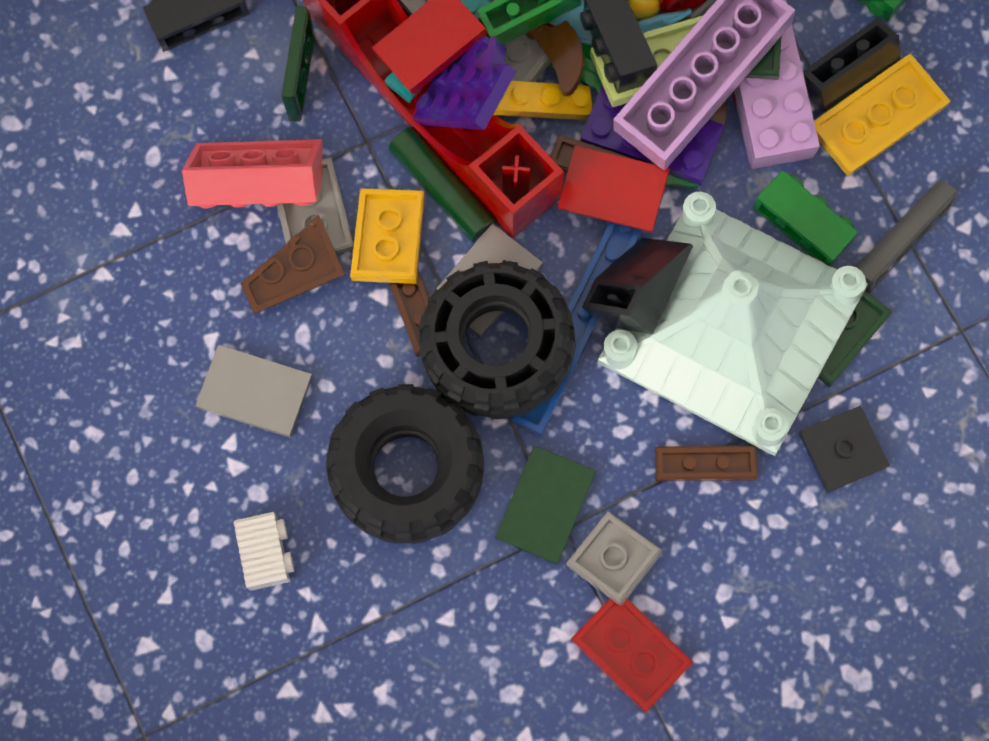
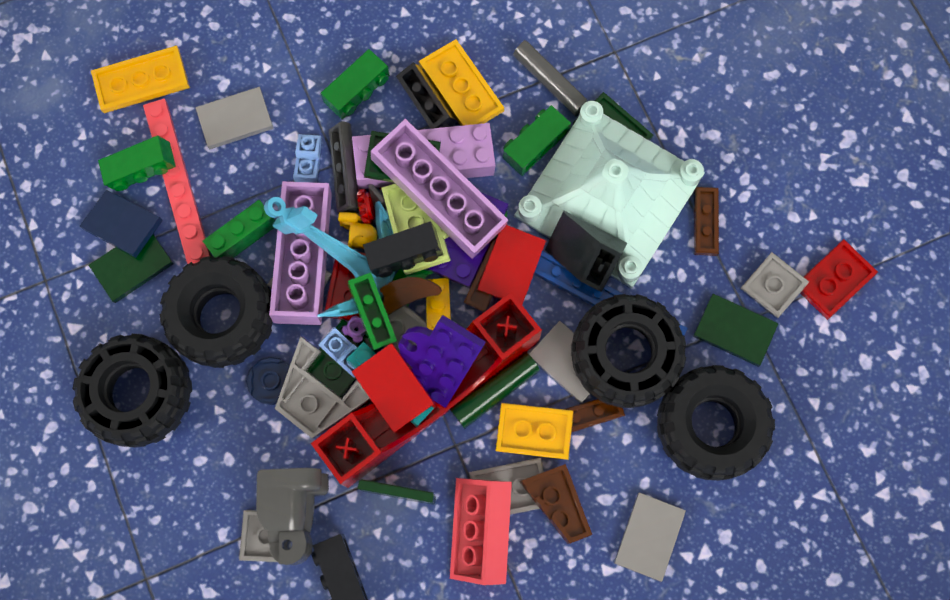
camera: 85 degrees left, 0 degrees up
(263, 550) = (772, 532): white brick -> none
(843, 449) = (697, 132): black plate -> none

